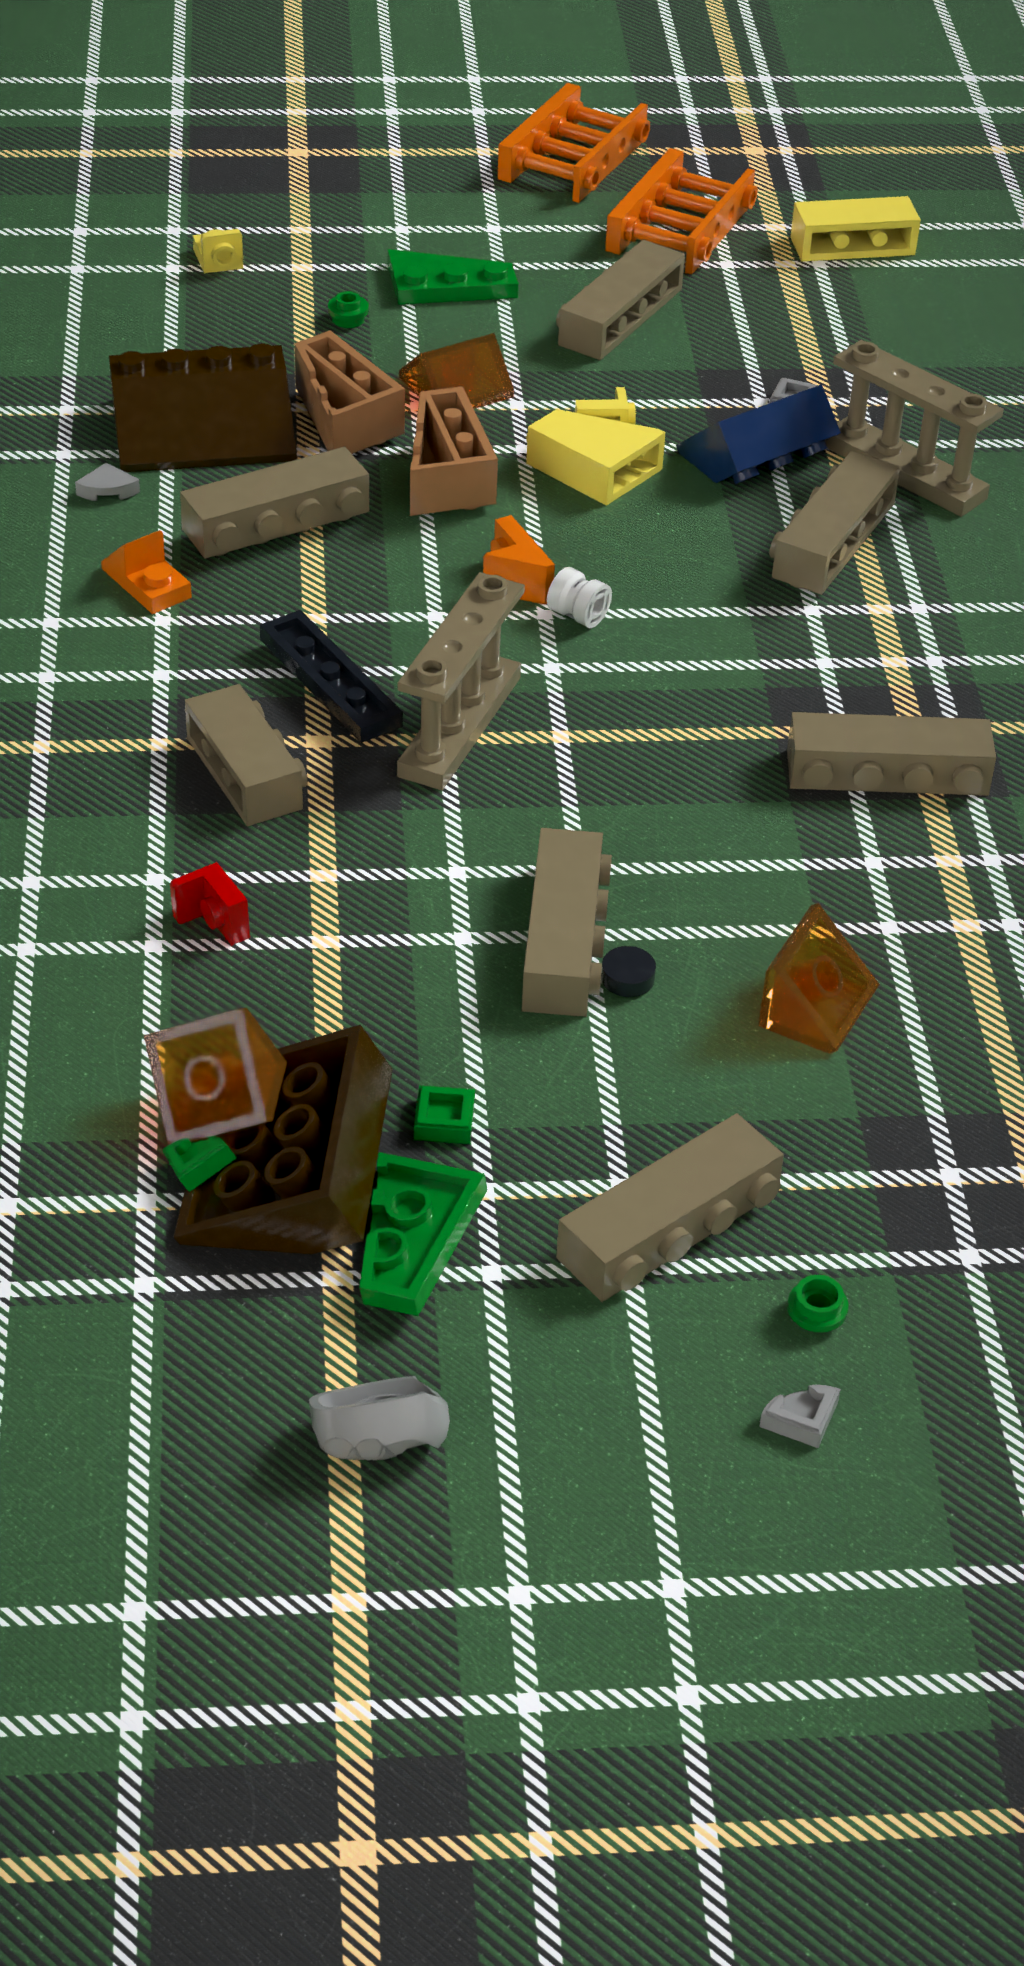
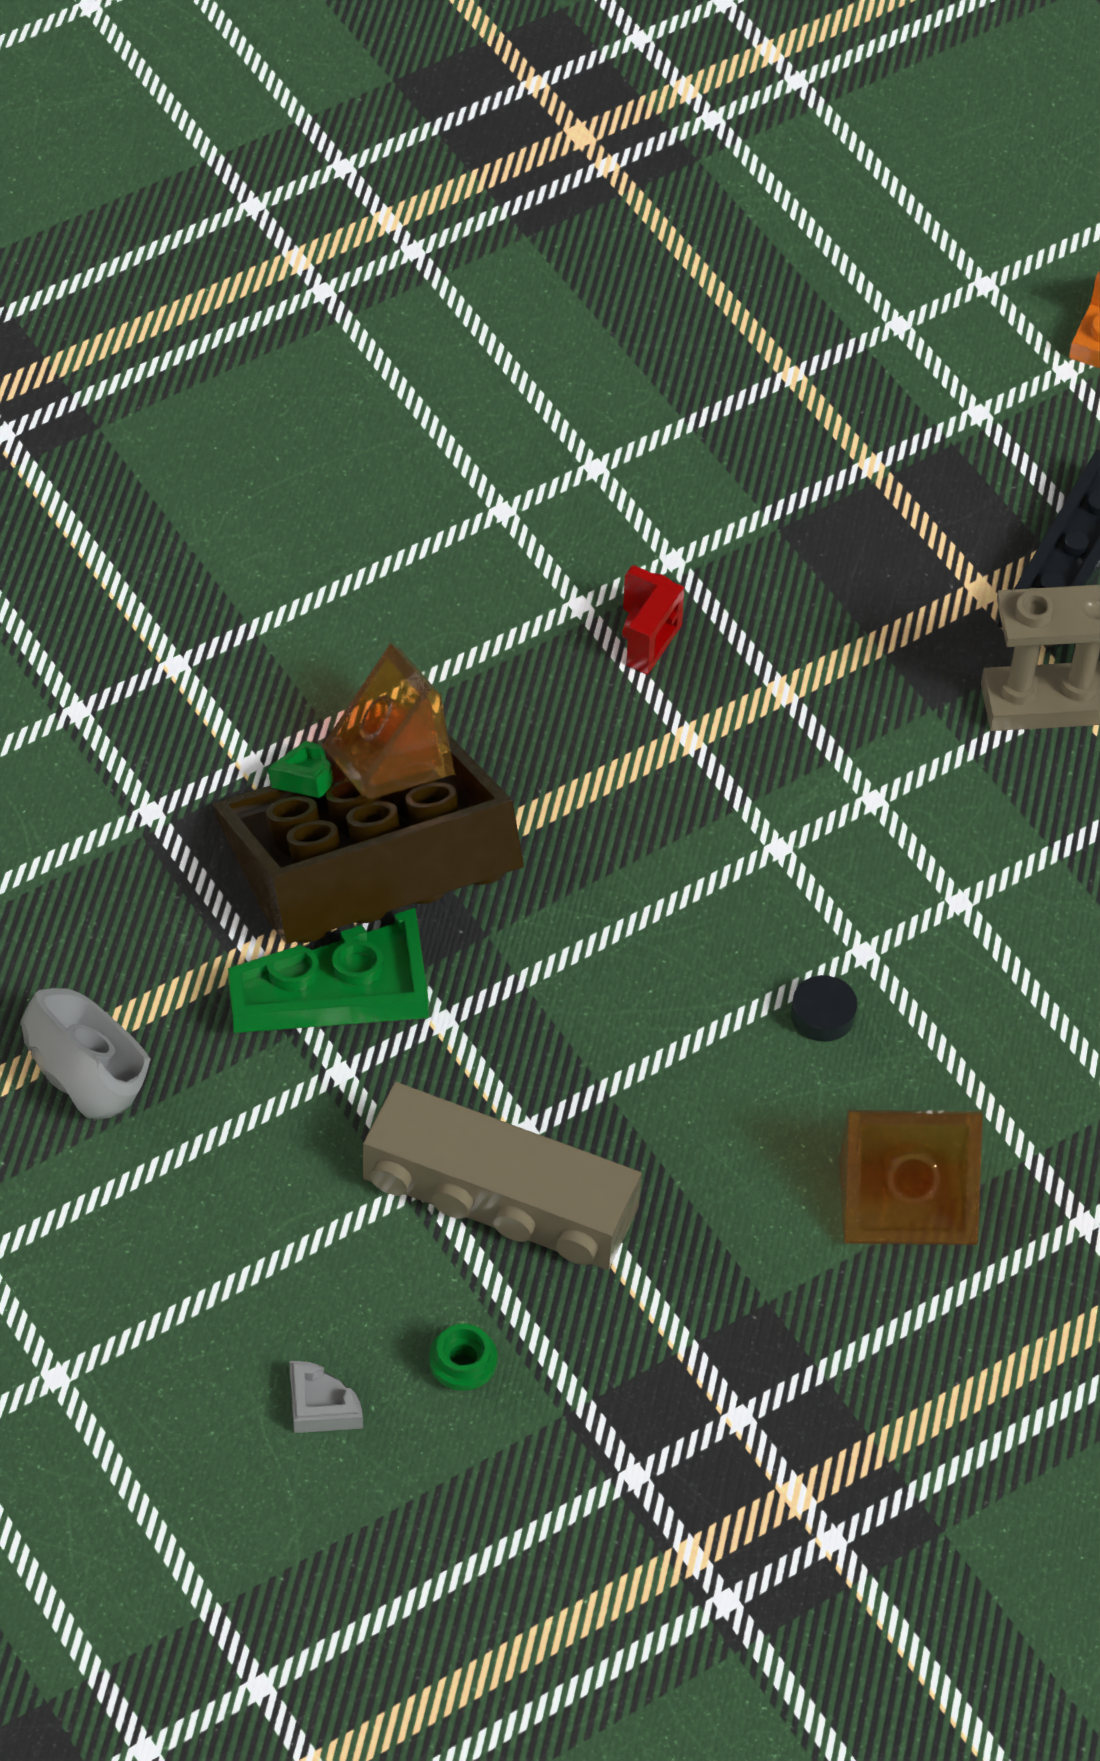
camera: 60 degrees right, 10 degrees up
(245, 754) = (887, 536): dark tan brick -> none
(444, 1114) = (511, 941): green tile -> none
(563, 922) = (843, 916): dark tan brick -> none

